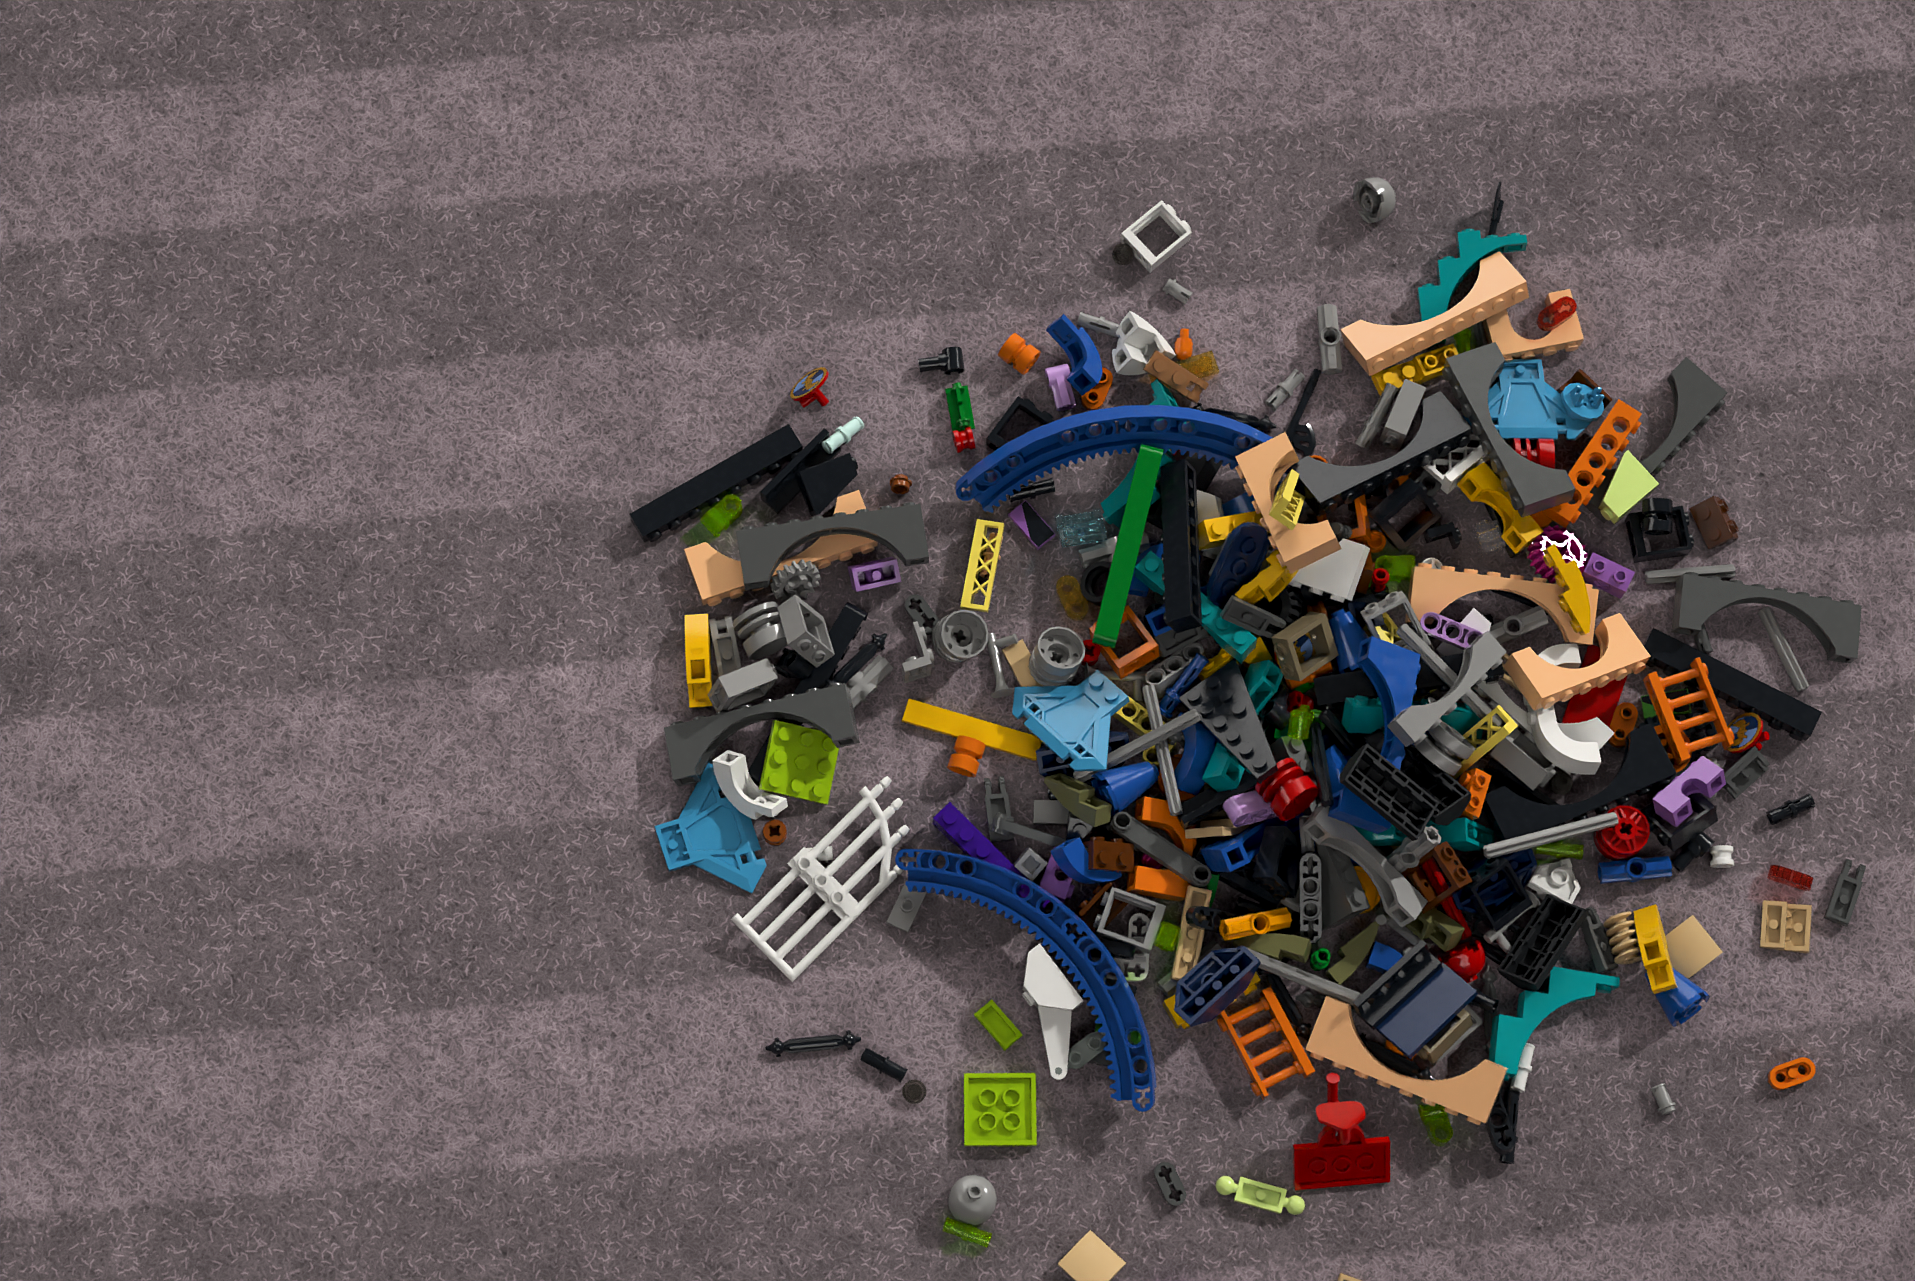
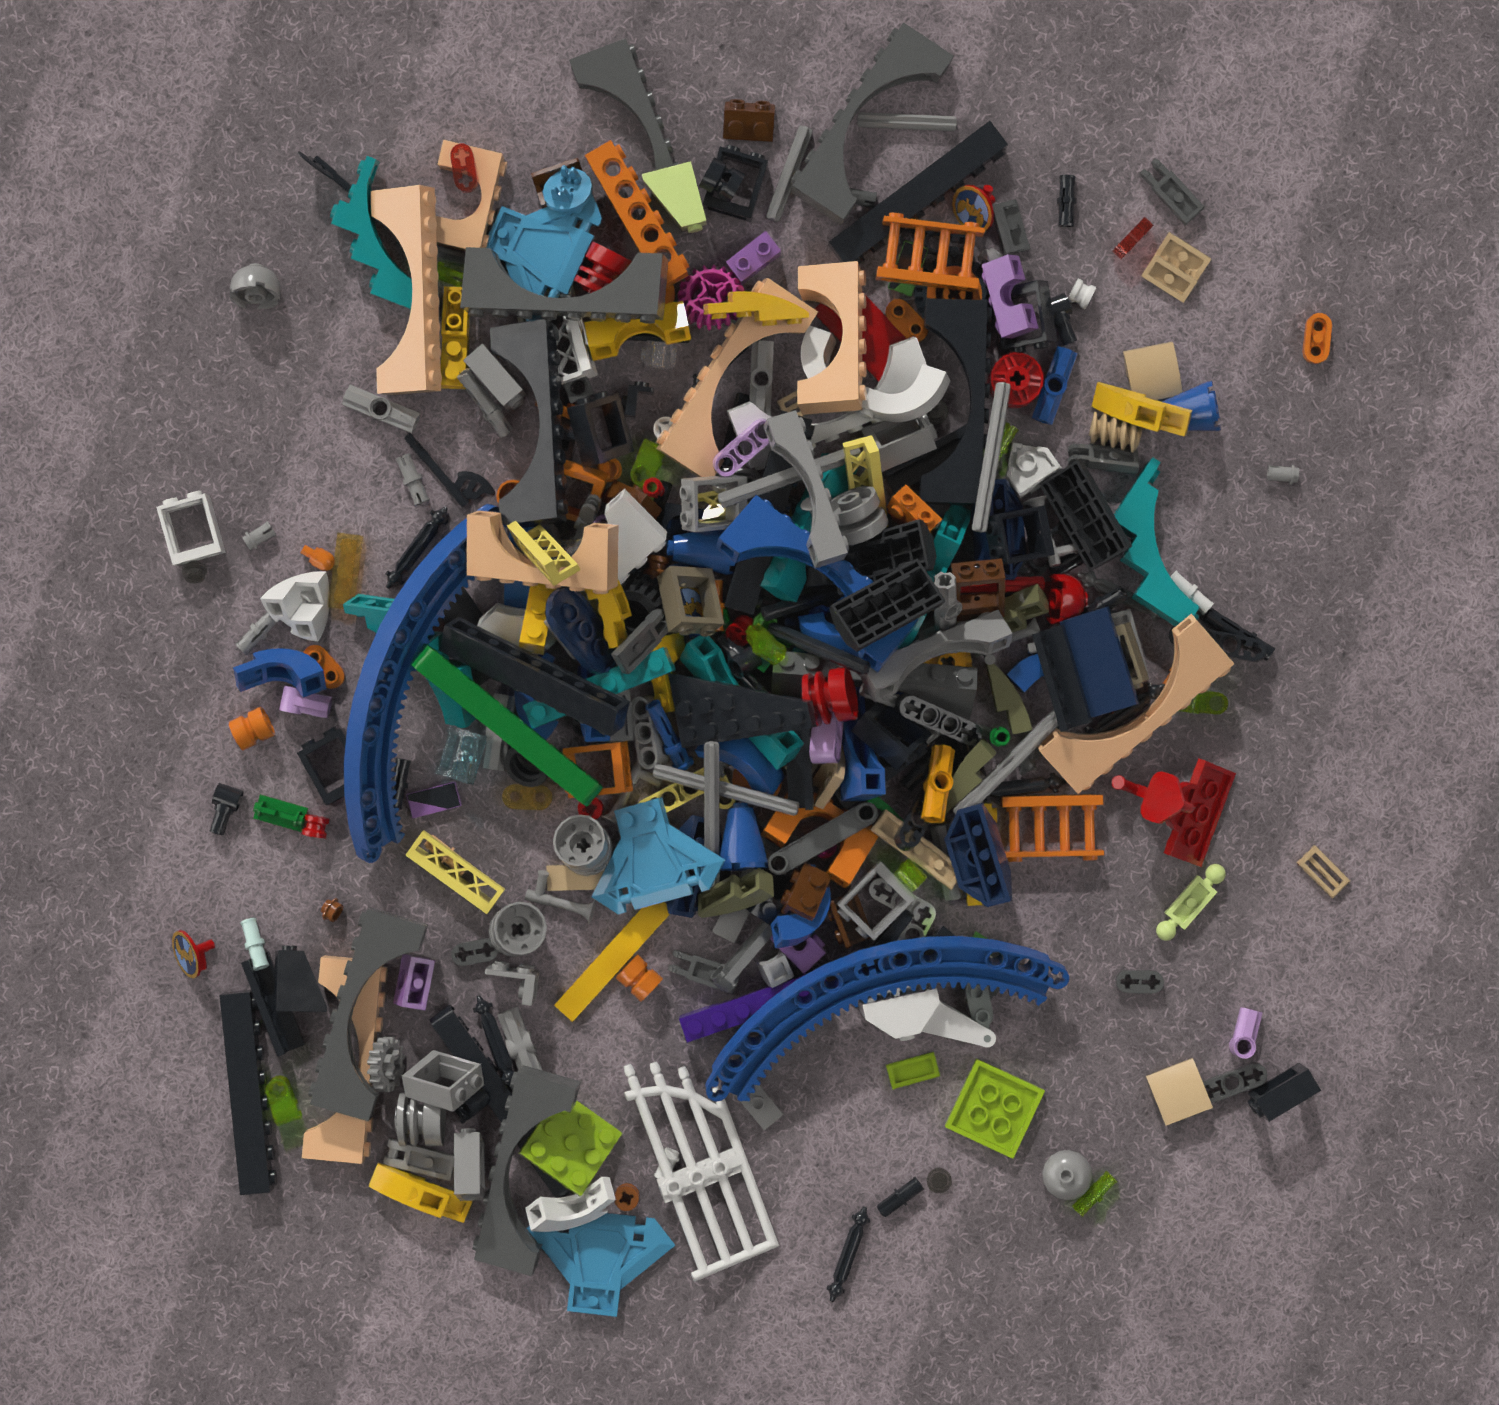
camera: 65 degrees left, 15 degrees up
(1175, 376) = (348, 585): medium nougat plate -> none

